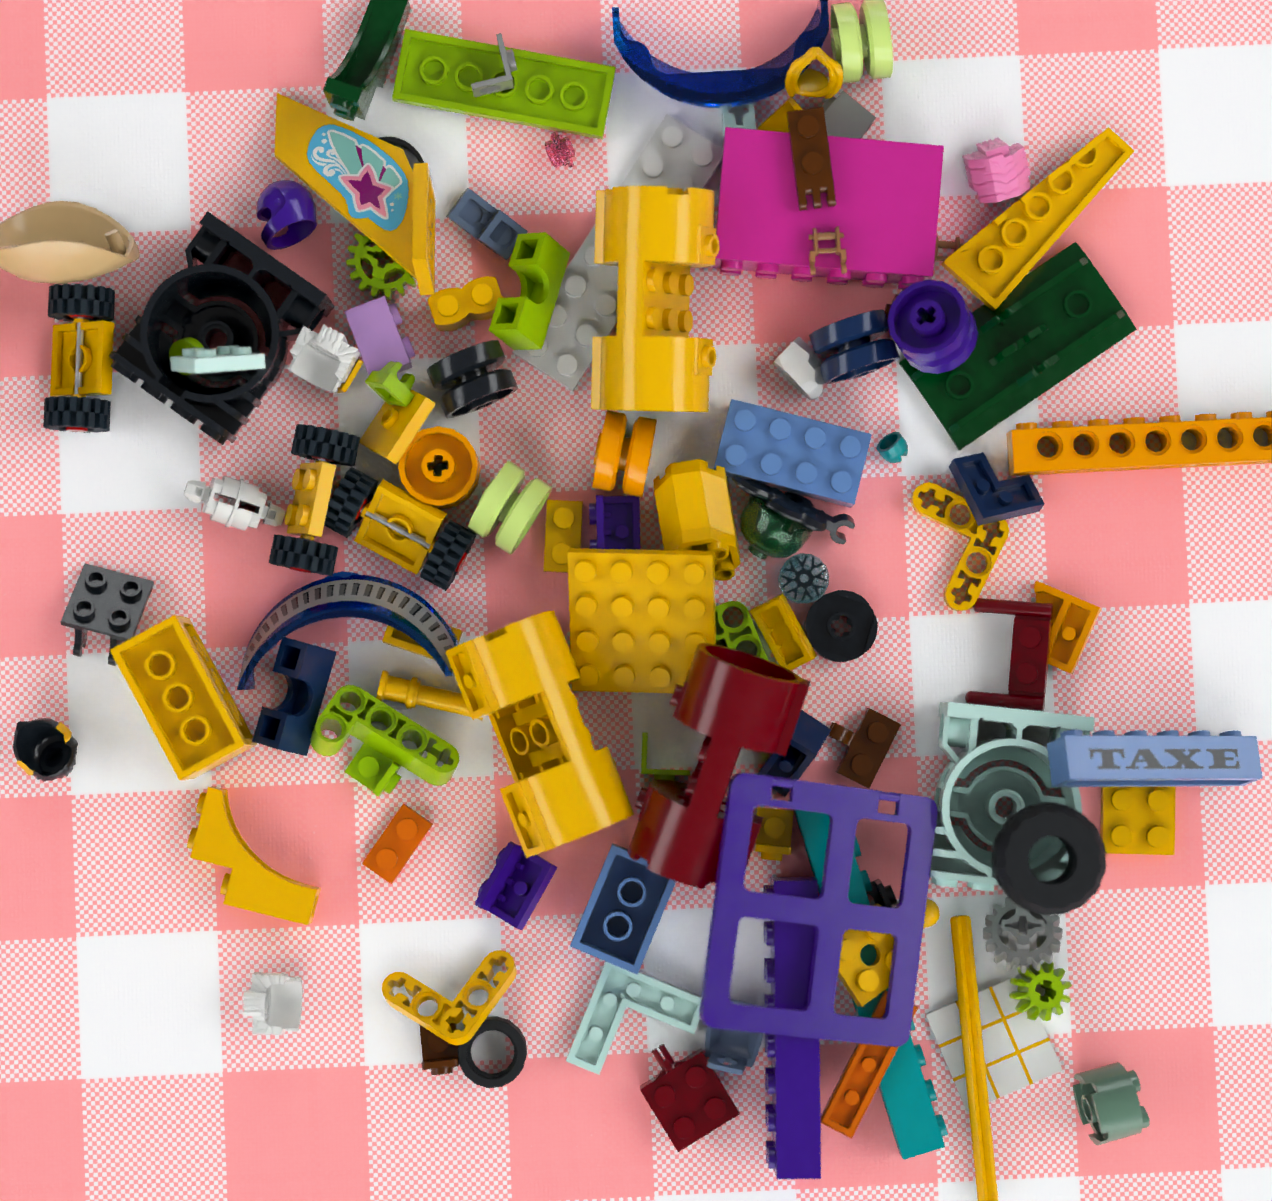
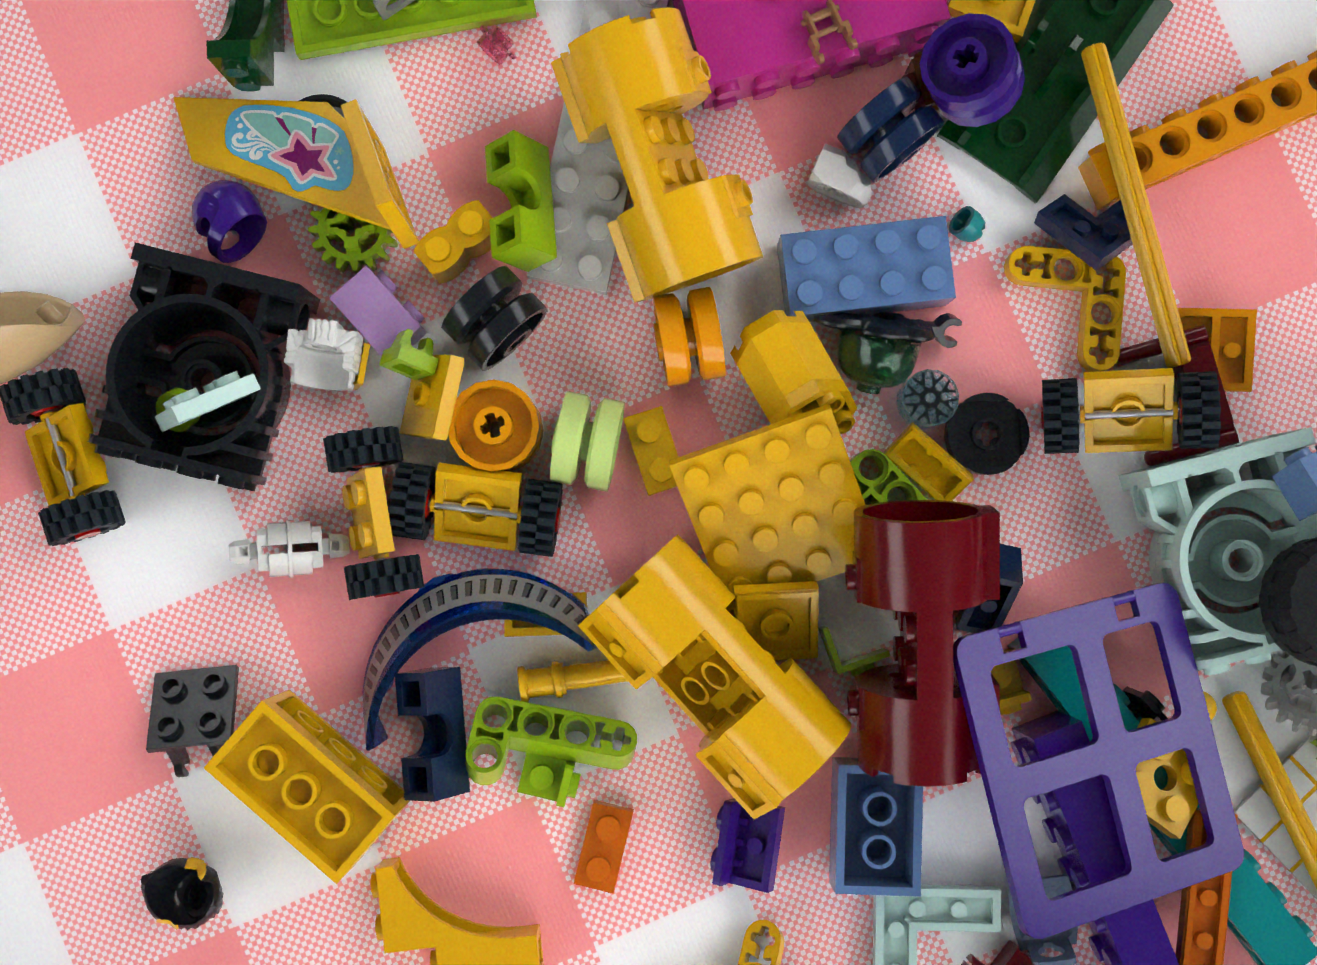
camera: 20 degrees left, 0 degrees up
(485, 223) = (446, 151): sand blue slope -> none
(612, 711) = (781, 617): none -> yellow plate
(616, 522) = (706, 414): dark purple bracket -> none
(865, 747) = (1061, 552): reddish brown plate -> none
(957, 650) = (1131, 411): none -> plate
(1030, 485) = (1135, 205): none -> yellow axle

